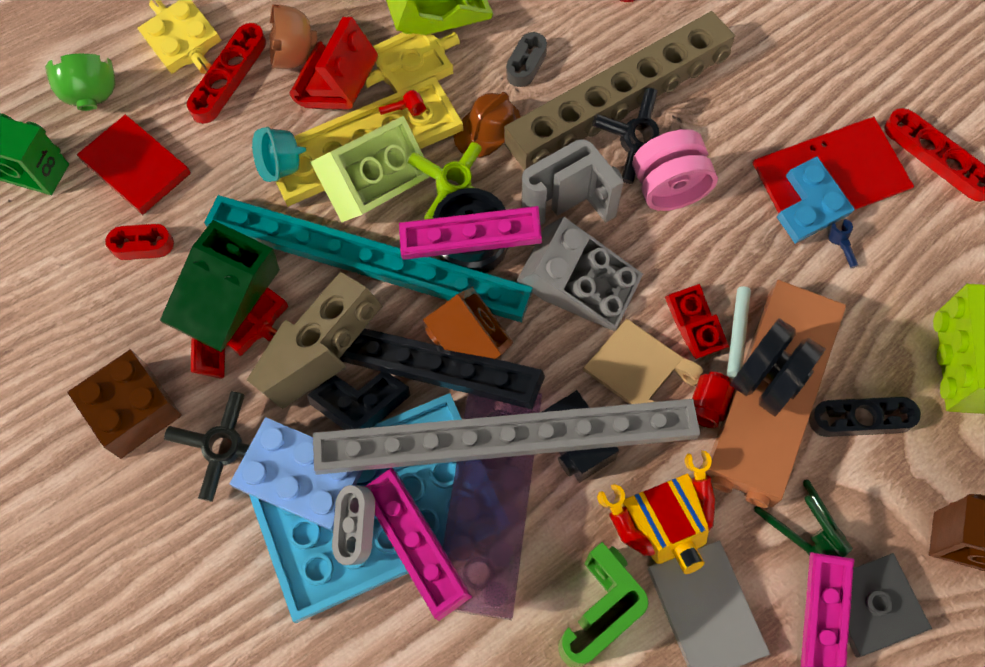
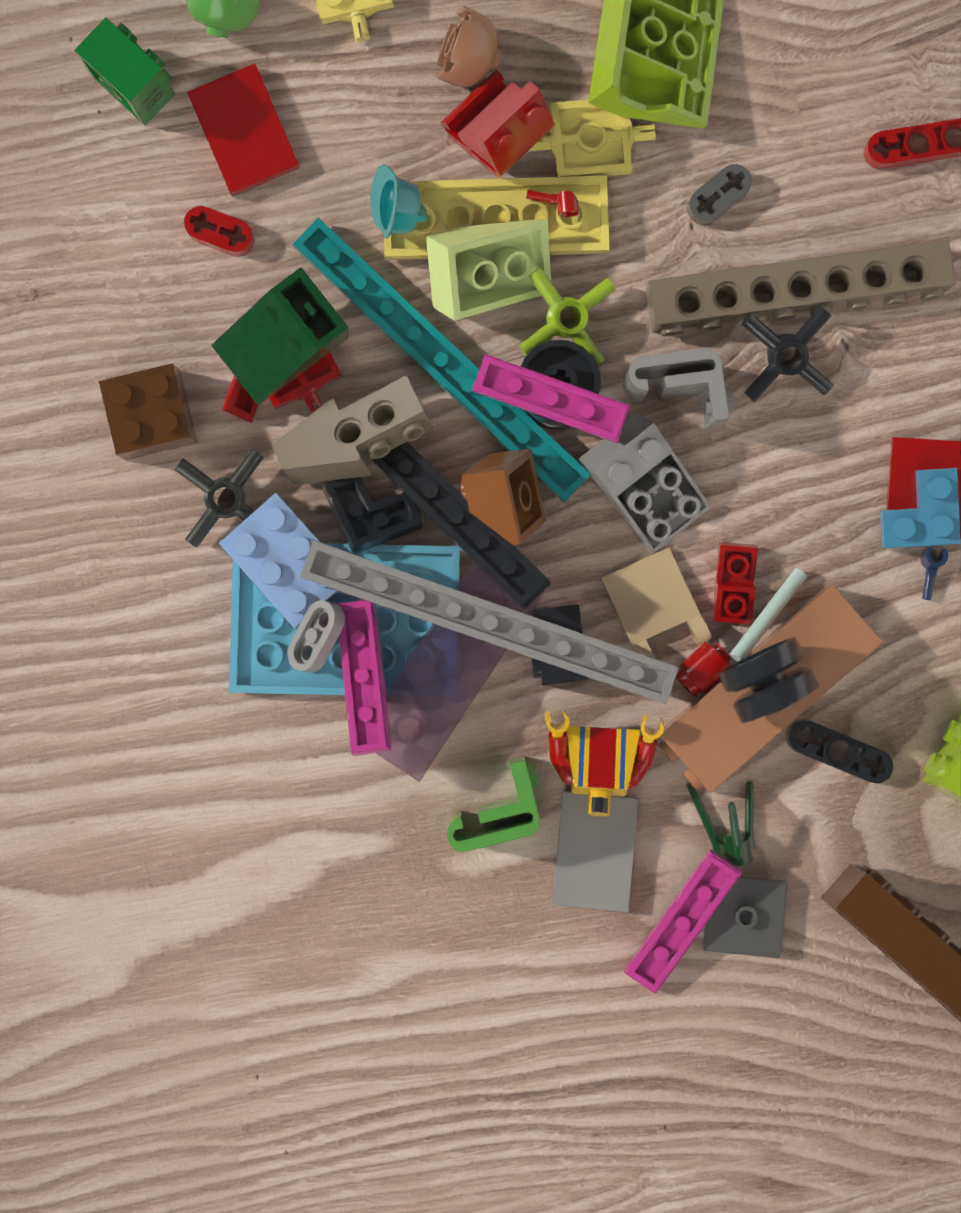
camera: 25 degrees right, 20 degrees up
(222, 70) = (380, 51): red beam -> none
(486, 123) = (636, 258): dark orange piece -> none
(674, 170) = (797, 418): bright pink wheel -> none

